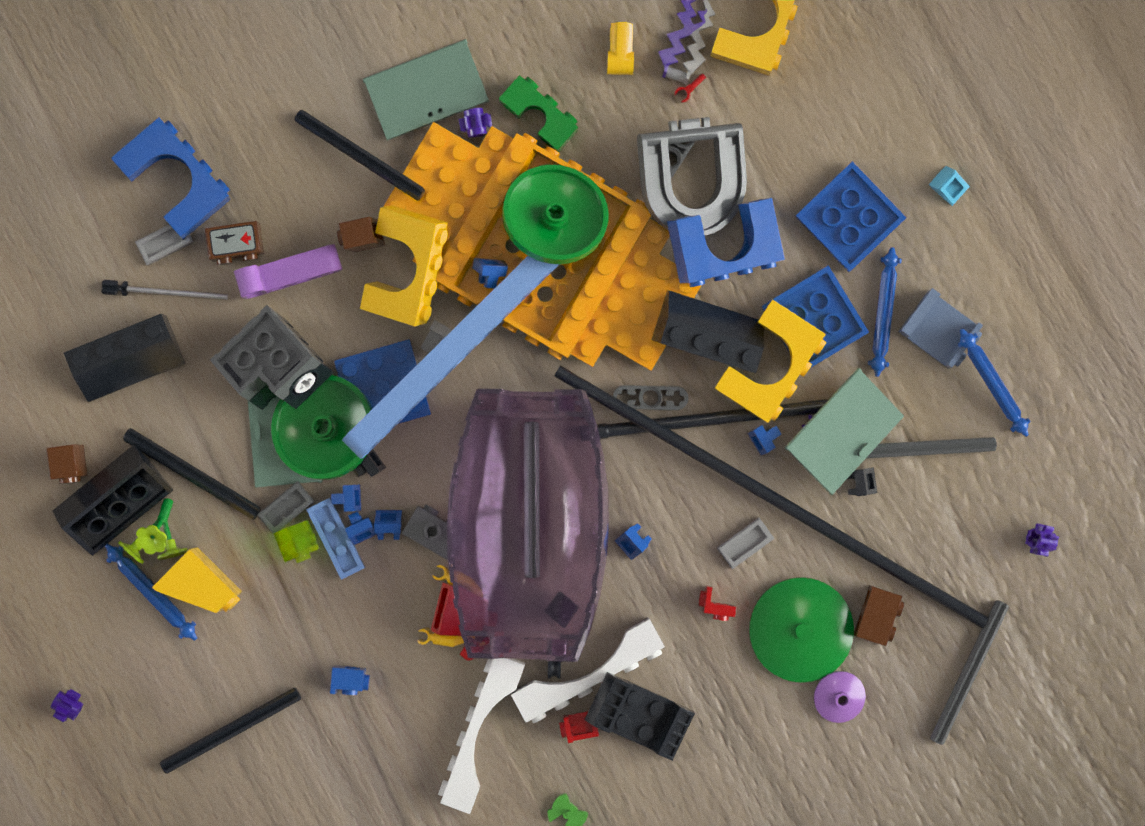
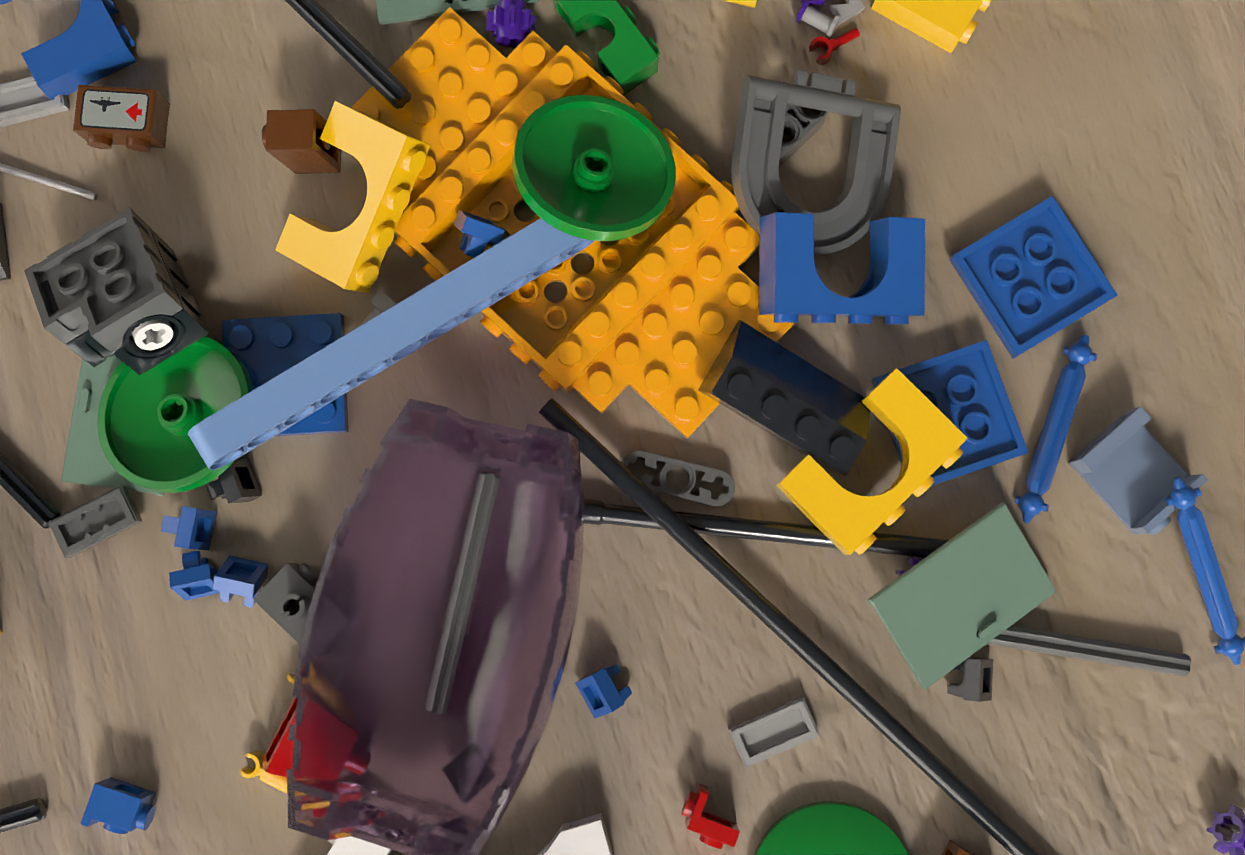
camera: 20 degrees right, 5 degrees down
(287, 272) = (180, 177): medium lavender beam -> none
(296, 542) = (95, 576): clear neon green brick -> none
(335, 539) = (160, 608): medium blue plate -> none
(763, 439) = (835, 578): blue tile -> none
(949, 185) = (1187, 263): medium azure slope -> none

